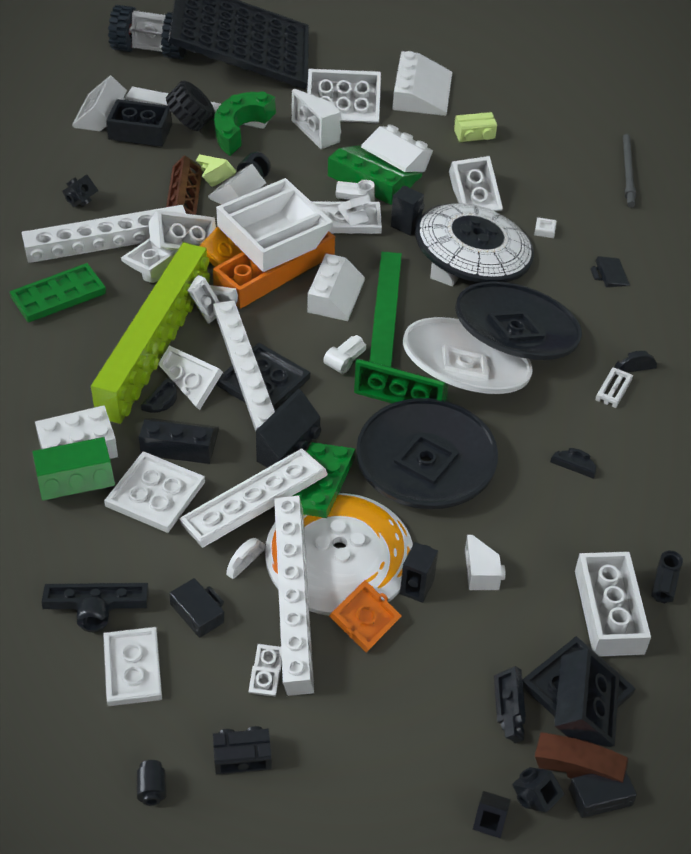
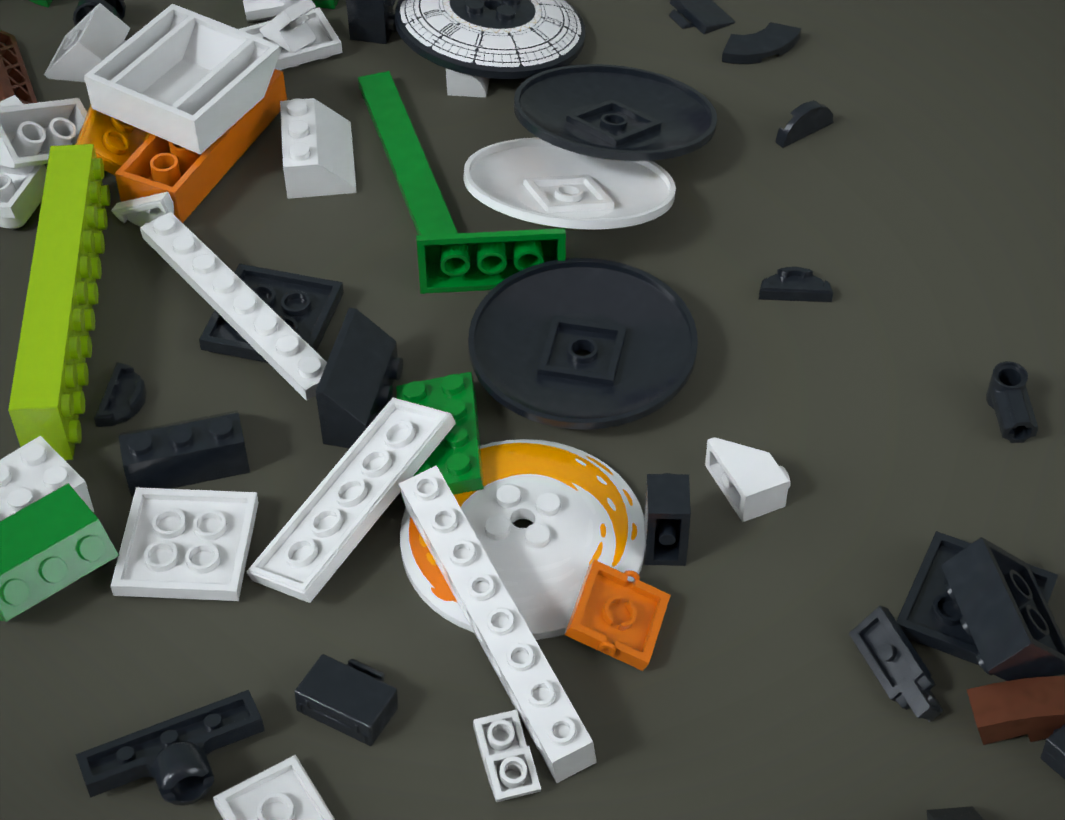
camera: 20 degrees left, 0 degrees up
(190, 374) = (153, 345): white wing -> none
(203, 297) = (121, 221): white slope -> none
(215, 169) = (39, 29): yellowish green slope -> none
(244, 556) = (382, 594): white tile -> none
(343, 356) = (379, 245): white piece -> none
(537, 789) = (1008, 775): black brick -> none
(609, 398) = (791, 182): white tile -> none
(612, 604) = (962, 466): white brick -> none
(630, 305) = (753, 47): none -> black tile

